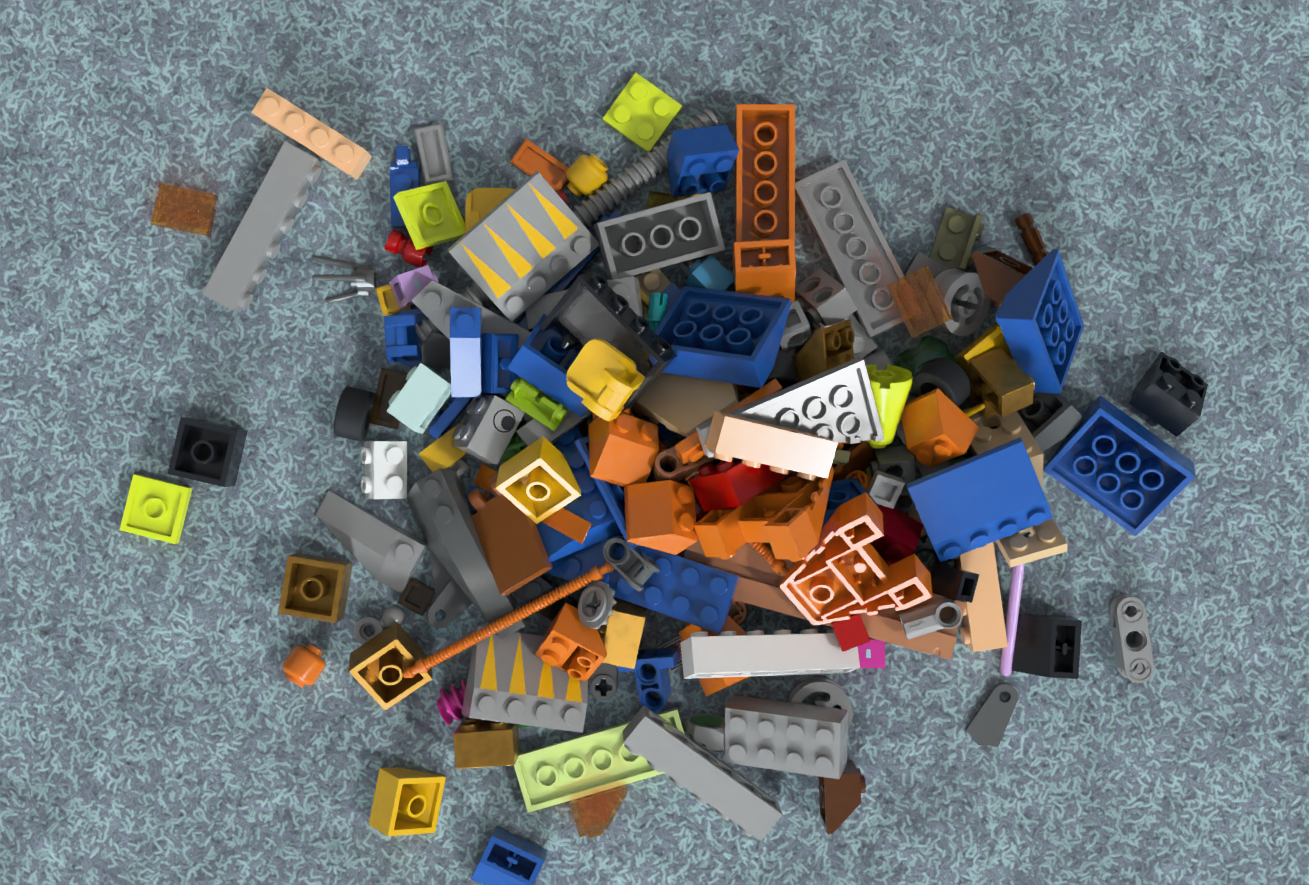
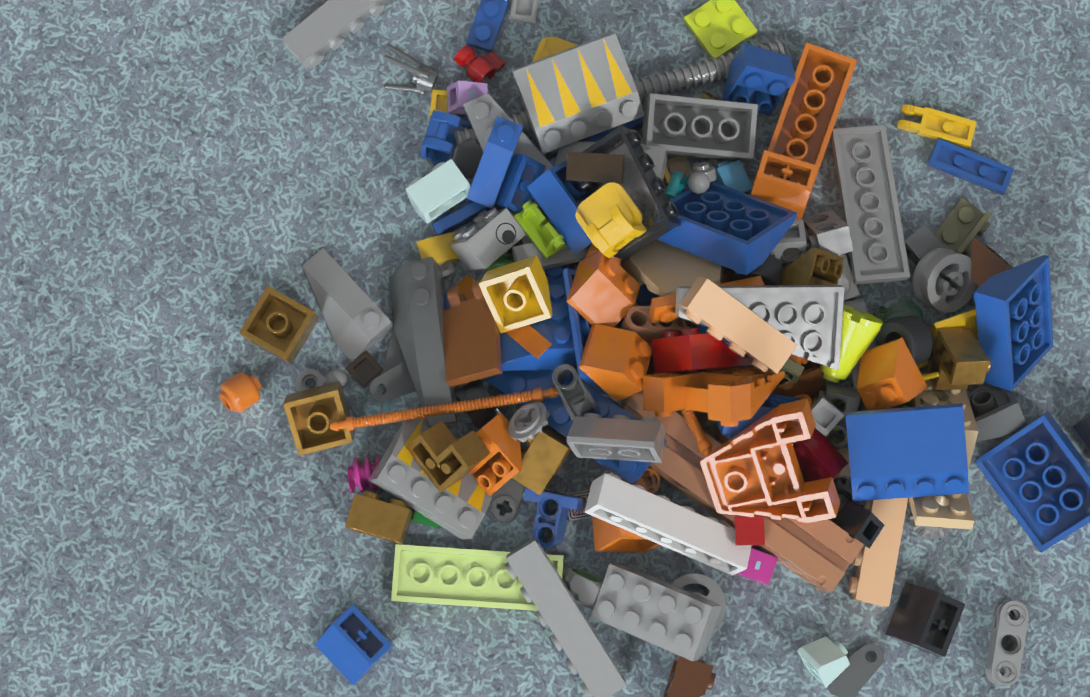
camera: 20 degrees right, 10 degrees down
(155, 508) = (164, 208): neon yellow plate -> none
(207, 452) = (231, 173): black brick -> none
(353, 413) = (372, 187): black tyre -> none
(384, 469) = (379, 246): white bracket -> none
(388, 384) = (397, 197): dark brown tile -> none
(406, 801) = (284, 550): yellow slope -> none
(430, 215) = (504, 42): neon yellow plate -> none
(526, 669) = (446, 458): none -> pearl gold brick
(532, 158) = (610, 24): orange tile -> none
(569, 326) = (595, 167): none -> dark brown tile
(586, 175) = (653, 58): yellow head -> none
(596, 811) = (456, 621): clear orange slope -> none
(678, 288) = (700, 177): none -> light grey plate
(689, 595) = (617, 438): none -> light grey slope
(900, 139) = (939, 124): none -> yellow hinge
(919, 302) = (910, 264): clear orange plate -> none
(927, 619) = (824, 542): light grey piece -> none
(944, 171) = (970, 166): none -> blue plate
(962, 719) = (824, 659): none -> light aqua slope
(1012, 619) = (903, 579): lavender piece -> none
(1031, 237) = (1029, 247): reddish brown axle -> none

